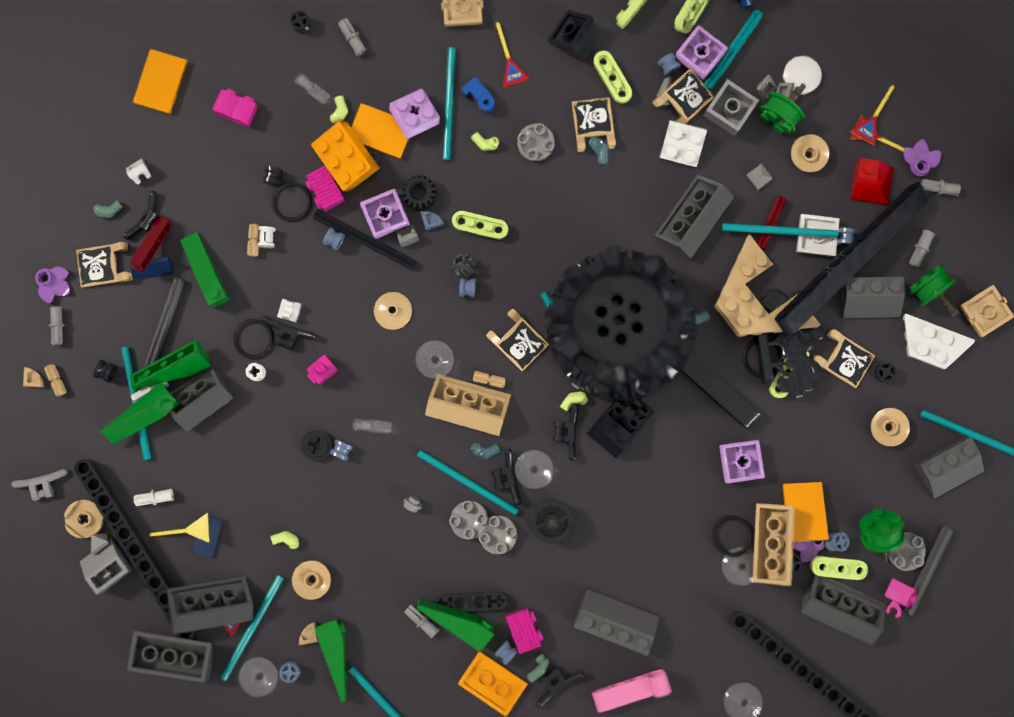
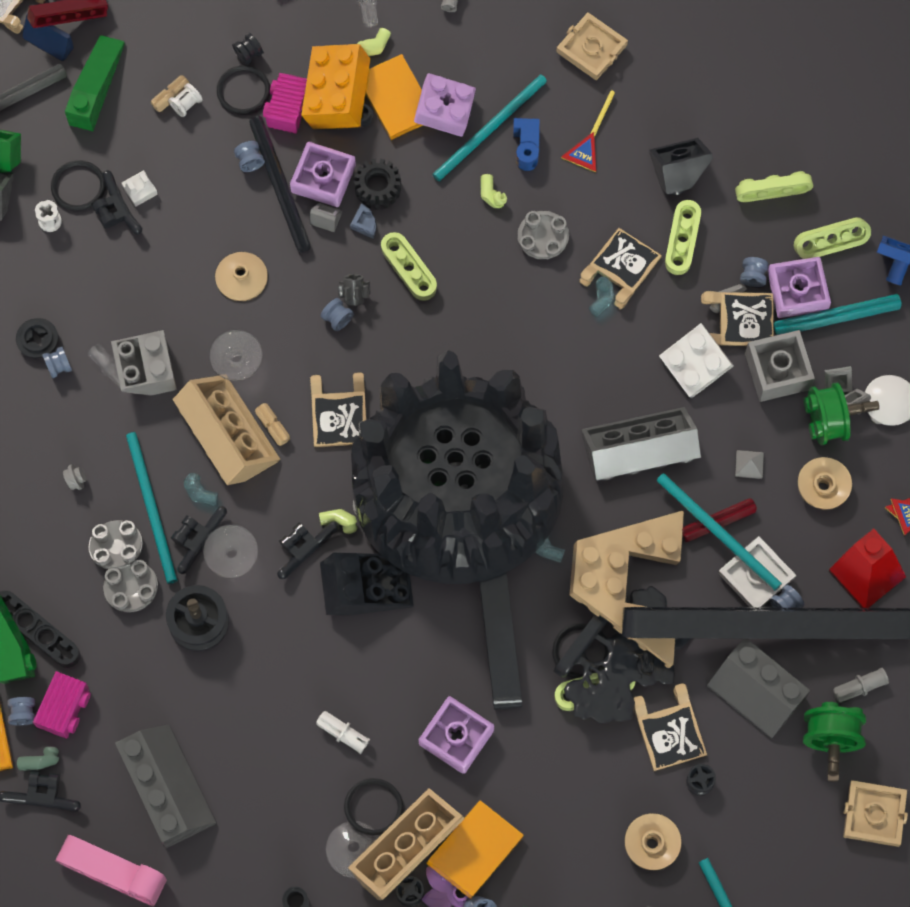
camera: 40 degrees right, 15 degrees down
(321, 370) = (114, 269): dark pink brick -> none
(390, 409) = (144, 364): none -> light grey slope
(681, 512) = (342, 732): none -> white axle
(933, 343) = (784, 797): white wing -> none

